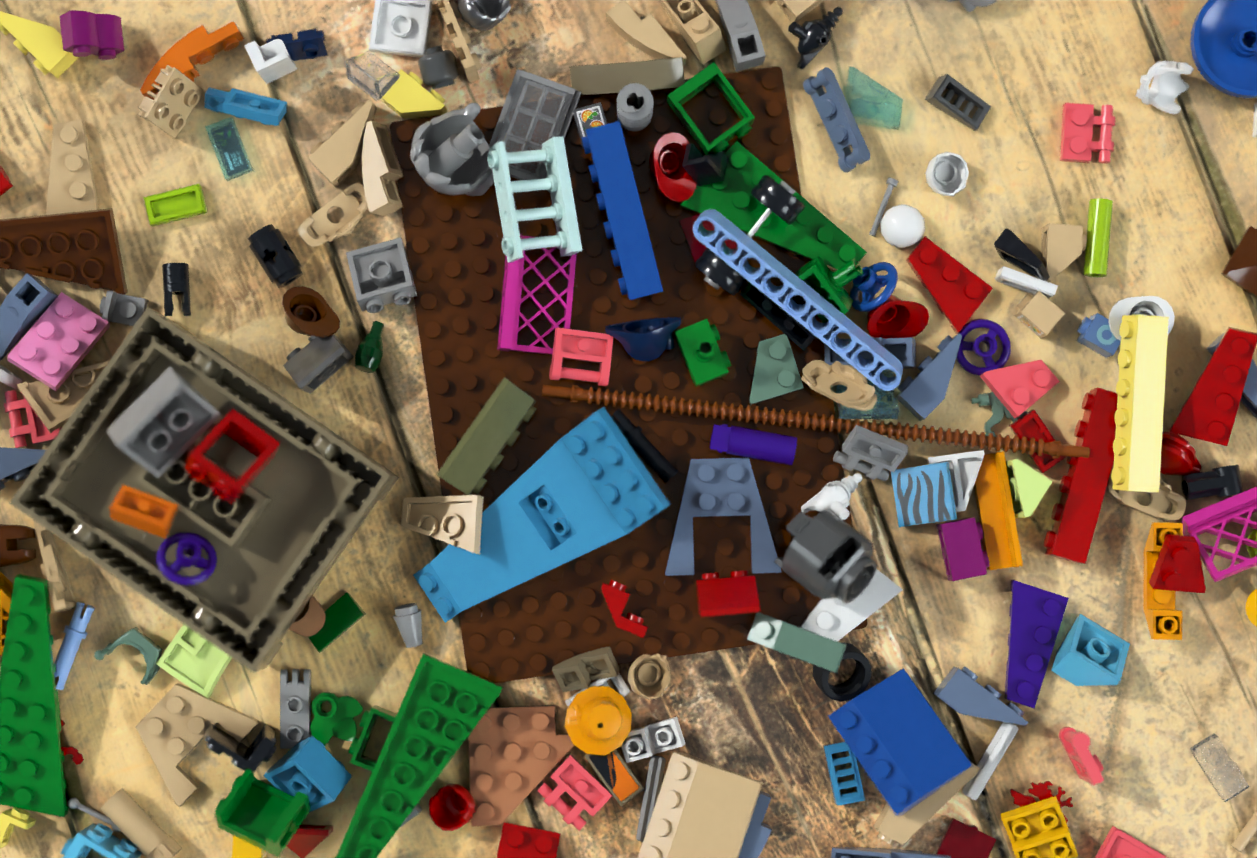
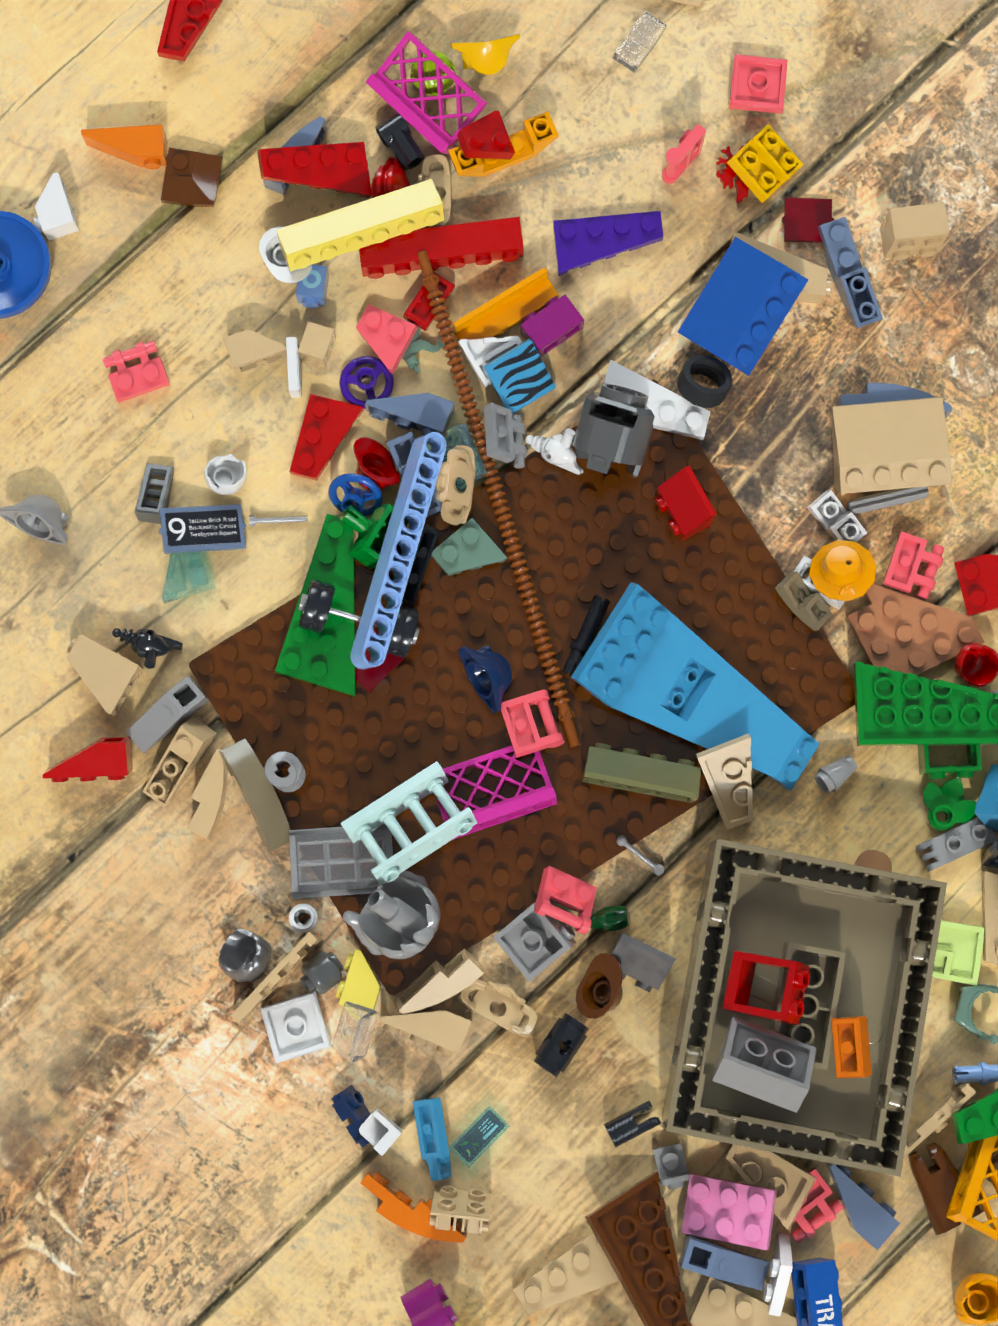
camera: 110 degrees left, 5 degrees down
(175, 205) = (553, 1163): lime tile -> none
(190, 545) = (863, 988): dark purple piece -> none
(338, 619) = (859, 838): green slope -> none
(397, 418) = (657, 869): none -> light grey hinge
(409, 323) = (567, 892): none -> coral plate
(492, 64) = (295, 917): none -> white cone
(588, 117) = (317, 805): brick -> none
(616, 601) = (732, 598): red slope -> none
(616, 776) = (883, 535): slope -> none
(623, 210) = (383, 741): blue brick -> none
(649, 676) = (784, 543): tan hair -> none
(667, 167) = (324, 714): red piece -> none
(696, 85) = (263, 671): green window -> none
(702, 352) = (480, 618): green brick -> none
(705, 168) = (312, 686): black panel -> none
(721, 489) = (594, 552): sand blue wing -> none
(753, 444) = (541, 540): dark purple piece -> none
(796, 642) = (698, 426): sand green slope -> none
(837, 119) = (216, 590): sand blue plate -> none
(841, 799) = (808, 331): dark azure slope -> none
(902, 226) = (288, 495): white hair -> none
(903, 130) = (202, 528): none -> piece
(969, 698) = (678, 265): sand blue slope -> none
(990, 759) = (718, 228): white axle -> none
(1017, 253) = (270, 387): black slope -> none
(1026, 487) = (477, 289): yellowish green slope -> none
(1090, 655) = (594, 182): medium azure slope -> none
(1098, 237) = (226, 322): lime piece -> none
(1165, 85) = (64, 321): white helmet -> none

